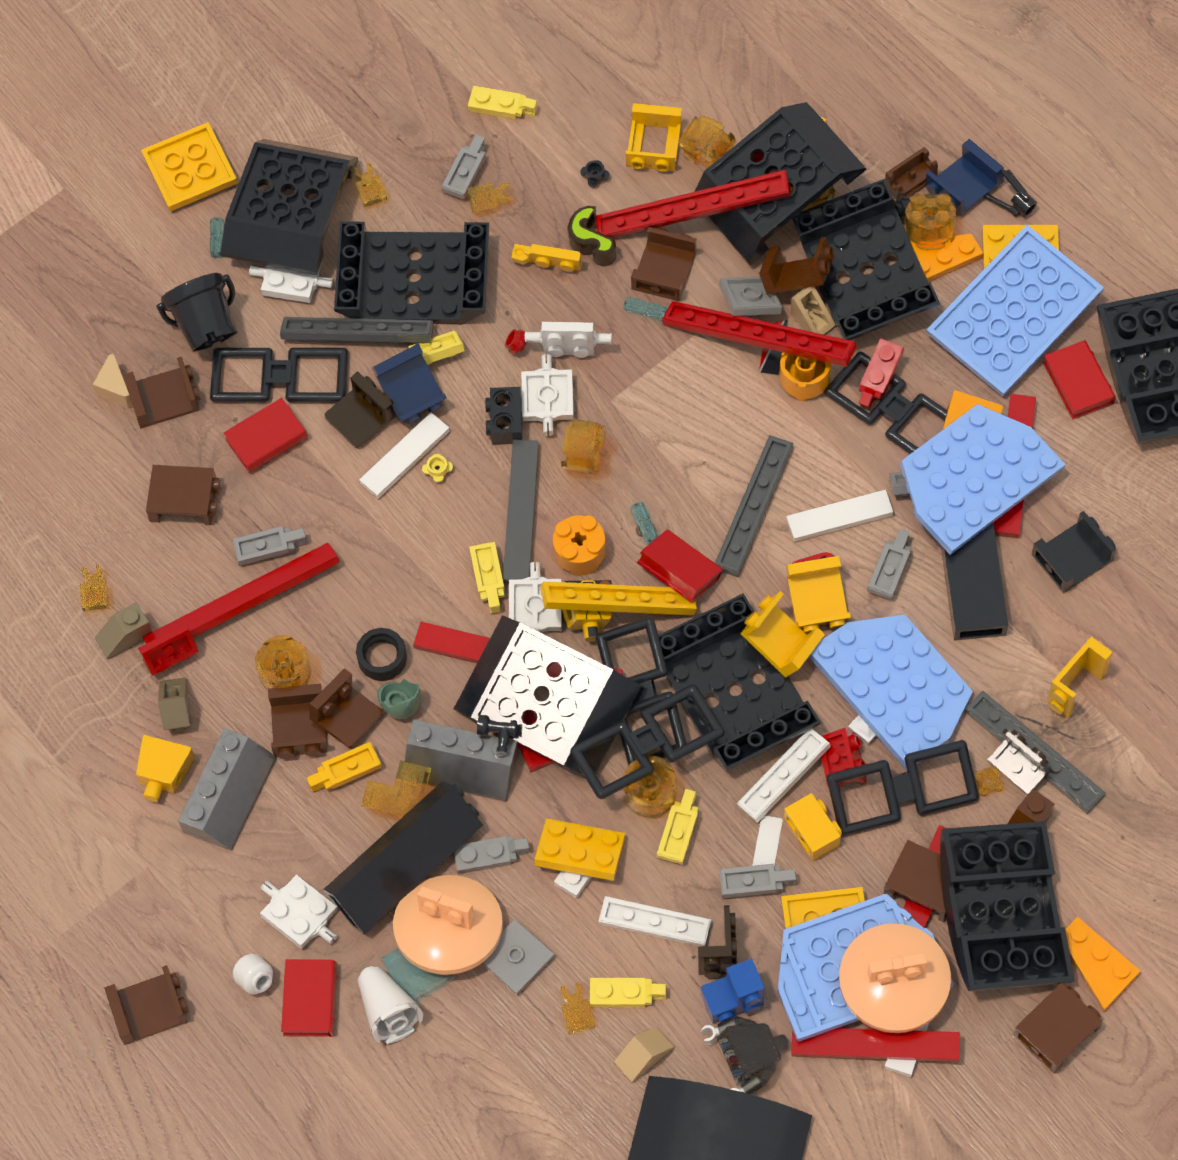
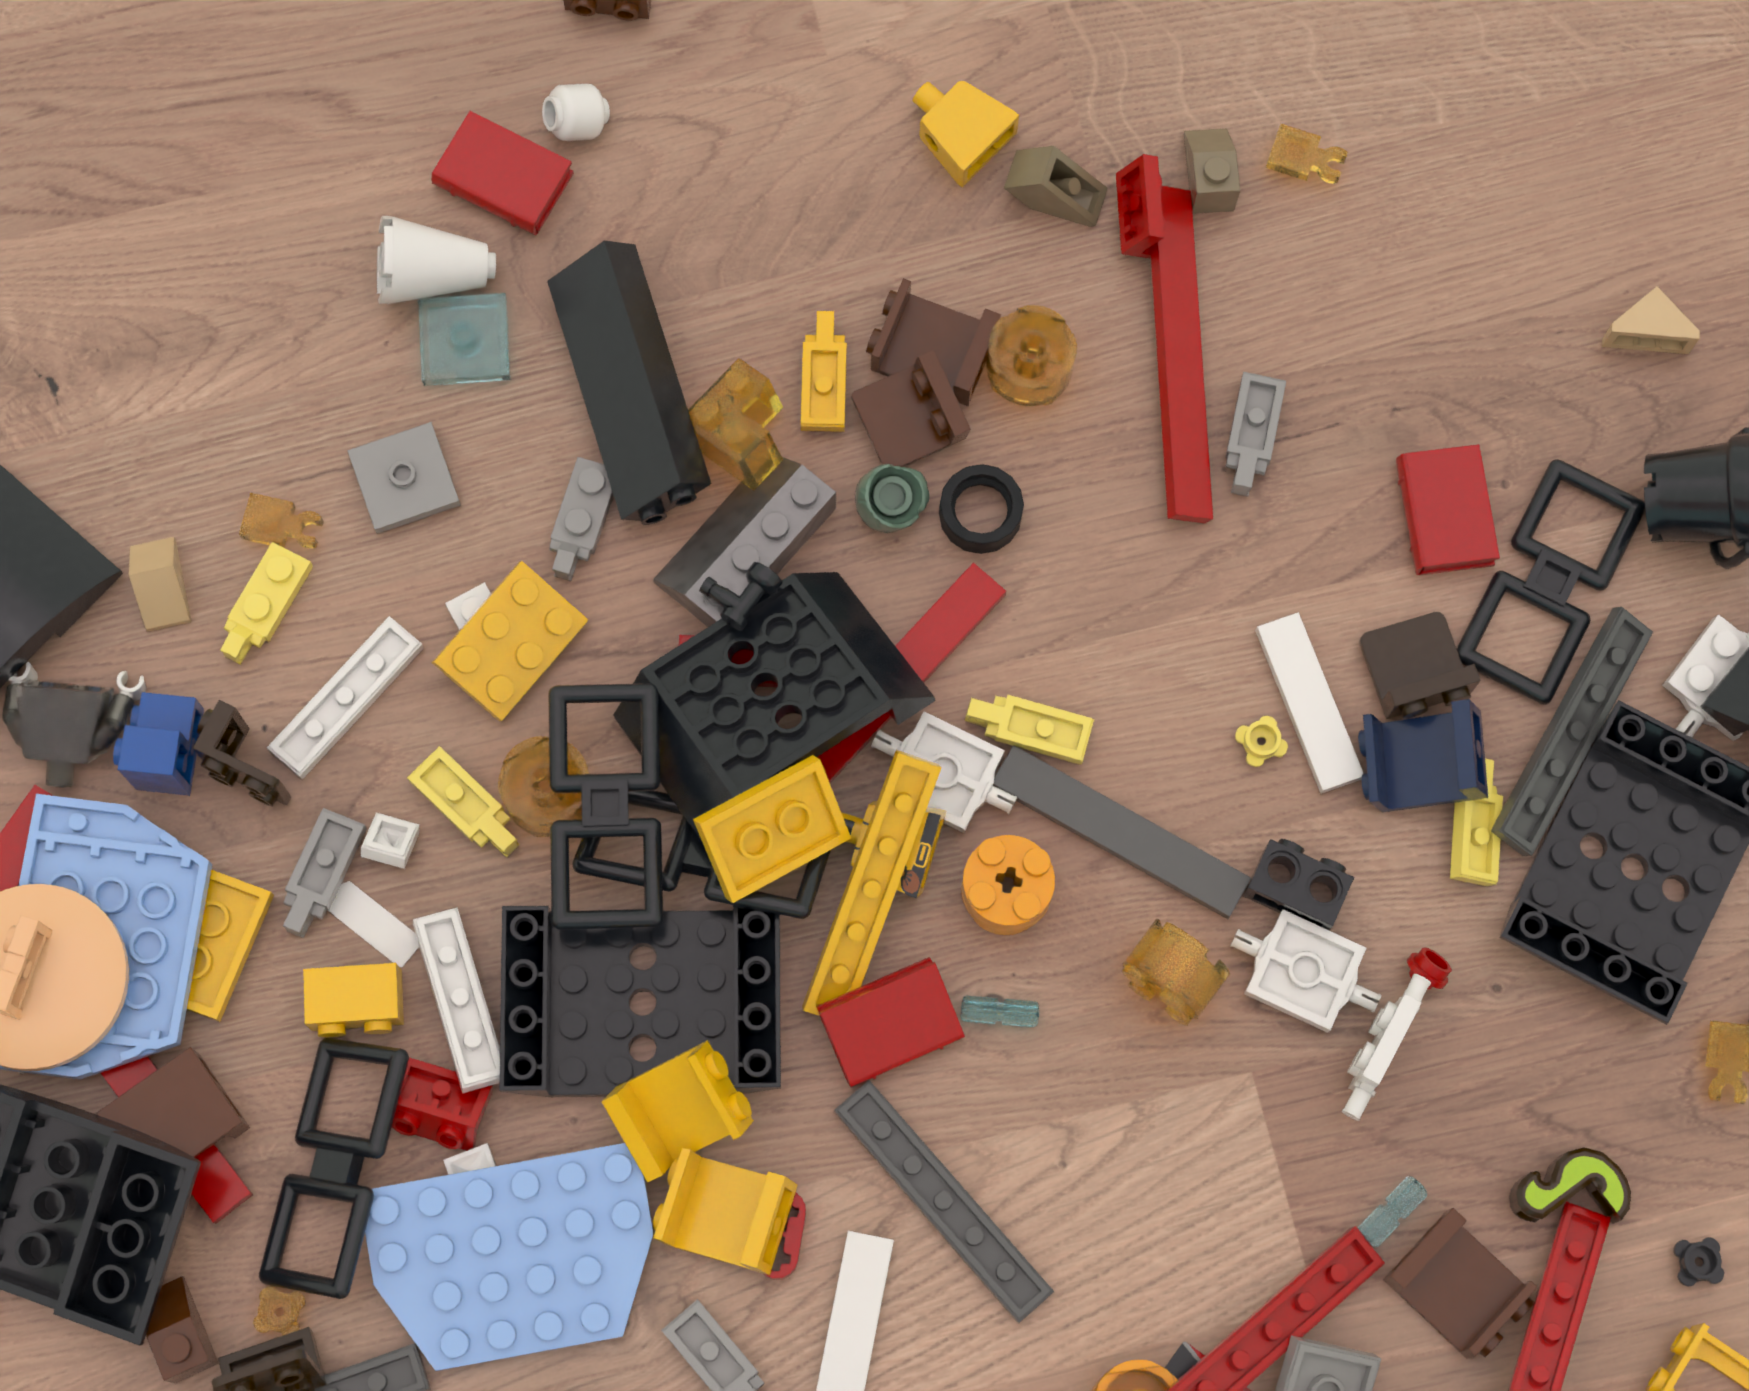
camera: 110 degrees right, 10 degrees up
(163, 395) = (1598, 388): reddish brown panel -> none
(182, 492) = (1401, 342): reddish brown panel -> none
(226, 790) = (877, 198): flat silver slope -> none
(298, 912) = (641, 211): white plate -> none
(448, 924) = (495, 399): light nougat bracket -> none
(547, 256) = (1567, 1091): yellow hinge -> none
(617, 648) = (772, 828): none -> yellow plate
(720, 854) = (390, 840): none -> white tile

